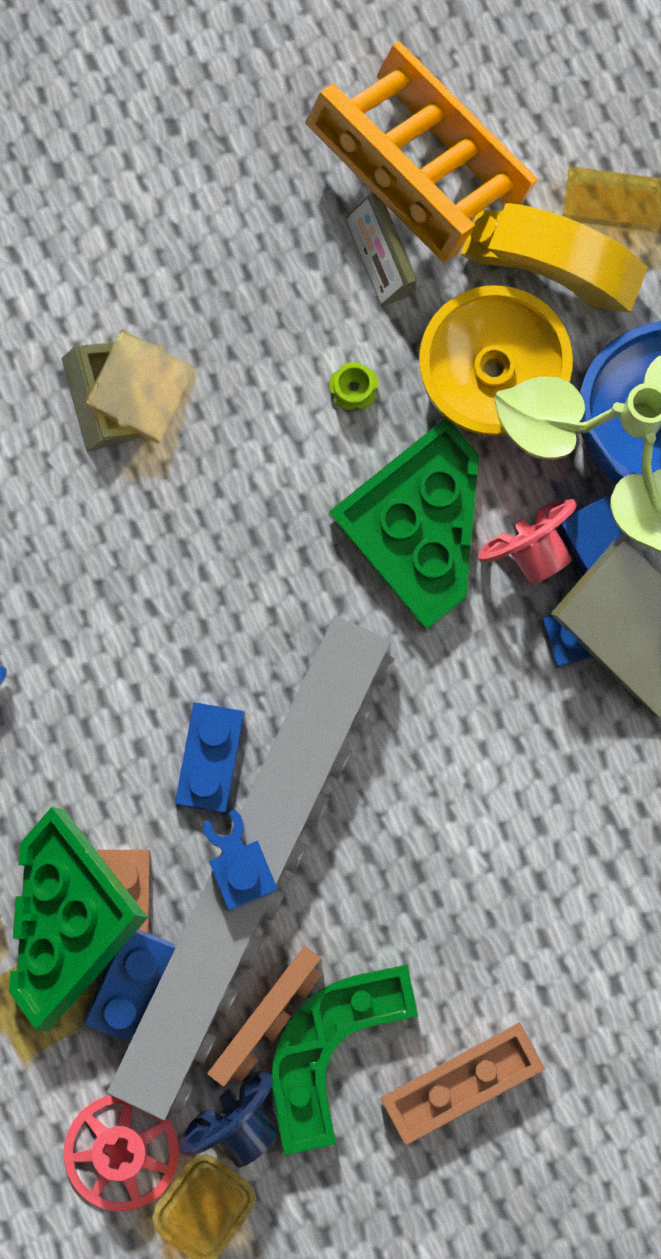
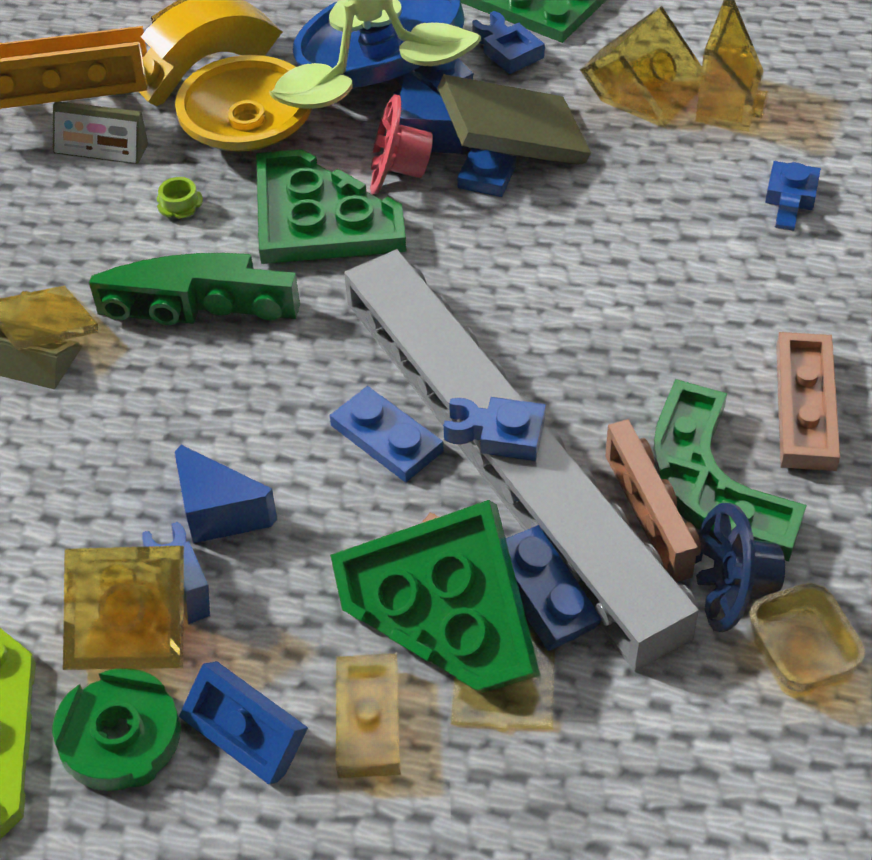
camera: 55 degrees left, 30 degrees down
(49, 675) = (221, 499): none -> blue slope
(119, 1156) = (703, 686): coral wheel -> none
(243, 475) = (181, 285): none -> green slope

